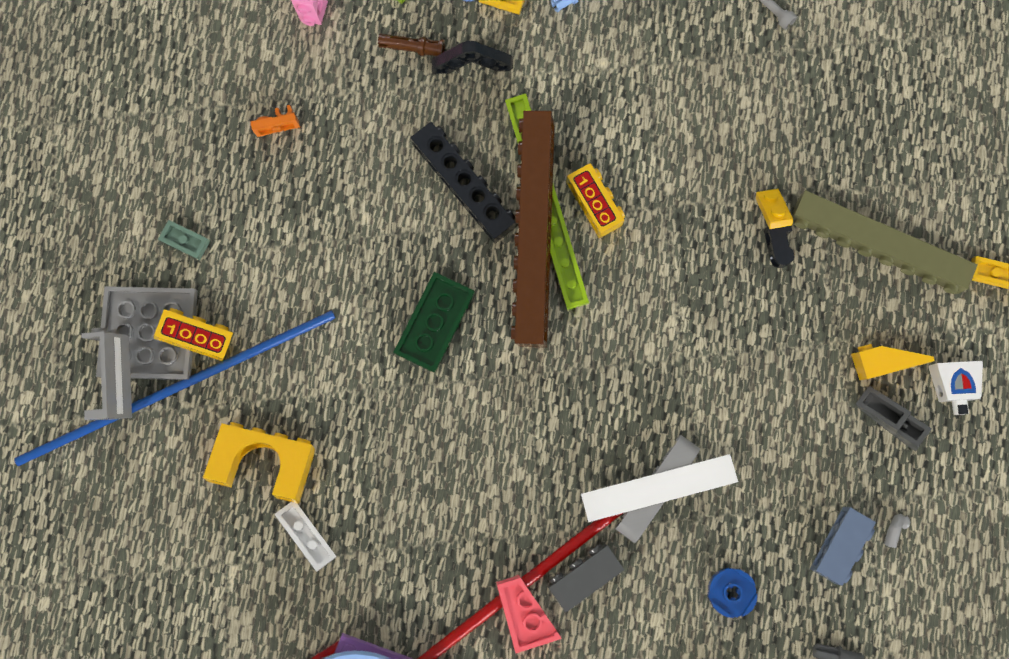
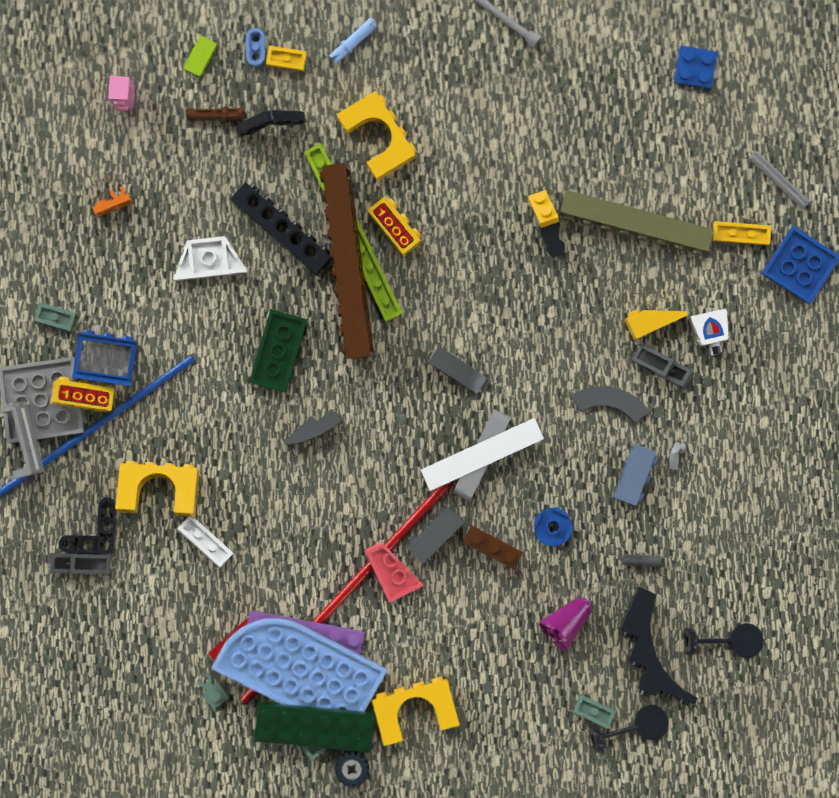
camera: 15 degrees left, 5 degrees up
(149, 536) = (79, 563): none -> dark grey slope
(177, 511) = (96, 540): none -> black beam
(229, 296) = (104, 358): none -> window
(372, 203) = (208, 259): none -> white wing
(459, 421) = (312, 429): none -> dark grey slope
(593, 67) = (373, 109): none -> yellow arch
(643, 380) = (457, 370): none -> dark grey slope
(654, 606) = (492, 547): none -> reddish brown arch
(826, 445) = (610, 397): none -> dark grey tile
(971, 79) = (695, 67): none -> blue plate

